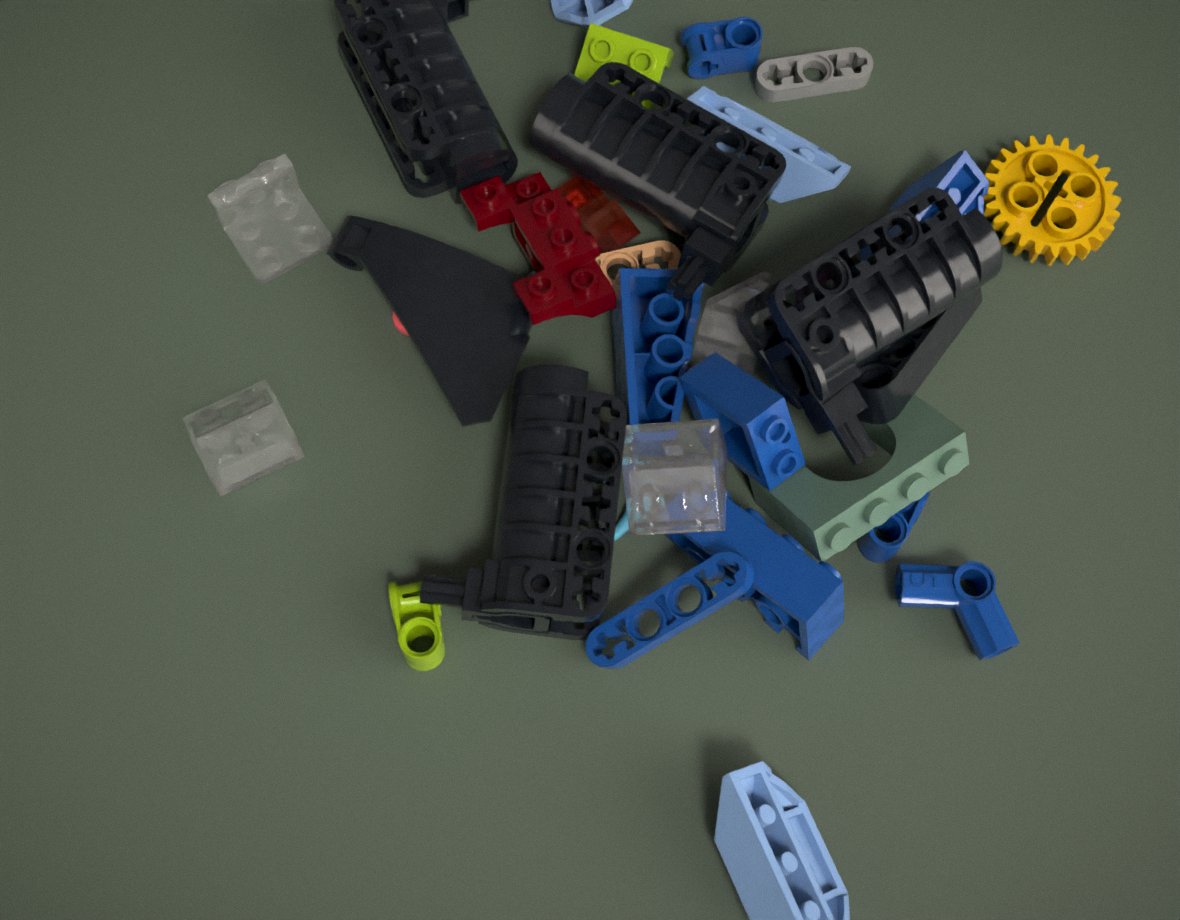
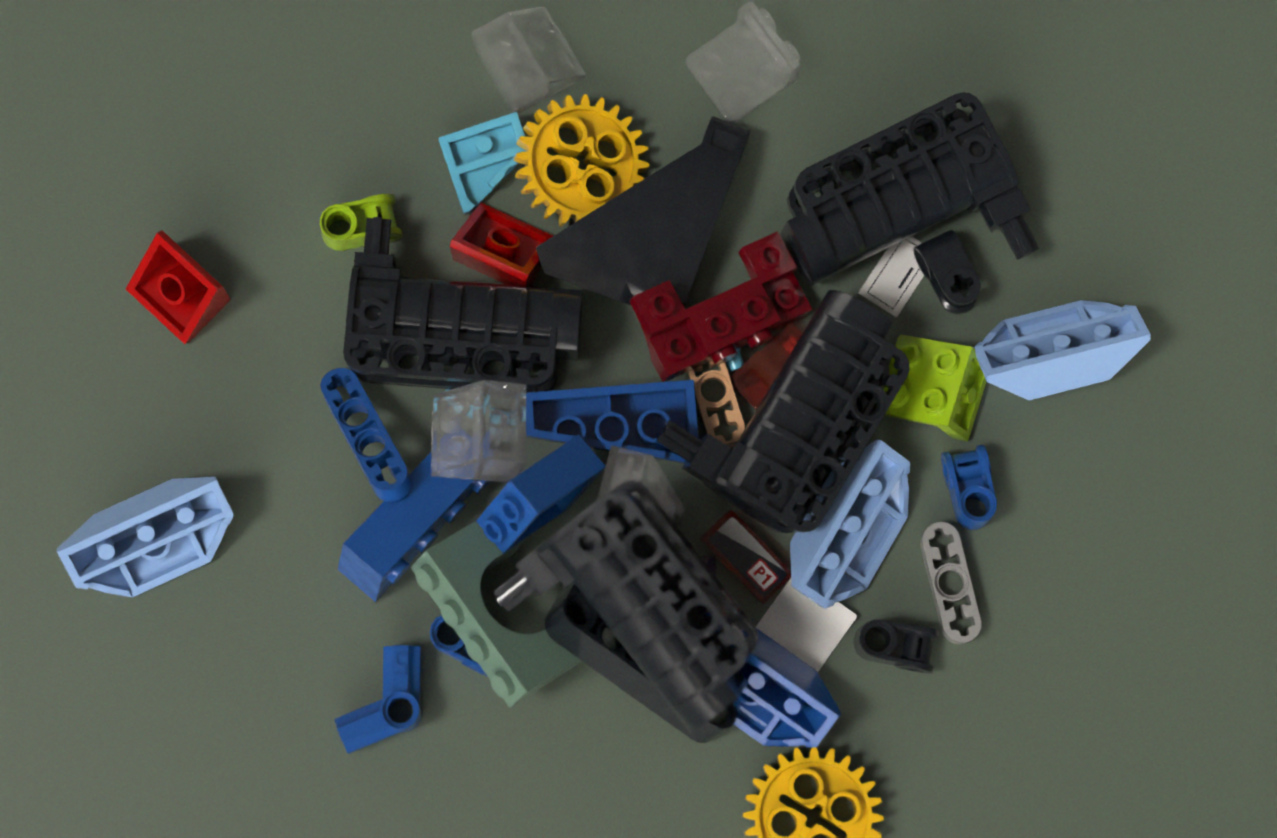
camera: 90 degrees right, 10 degrees up
(330, 371) = (591, 126): none -> yellow gear
(351, 488) = (481, 157): none -> medium azure wing
(456, 470) = (499, 246): none -> red slope
(484, 835) = (176, 288): none -> red slope
(503, 55) = (946, 265): none -> black piece
(511, 107) = (894, 277): none -> white sticker
(792, 245) = (746, 556): none -> slope
(853, 203) = (805, 626): none -> white sticker
(876, 122) = (900, 645): none -> black piece

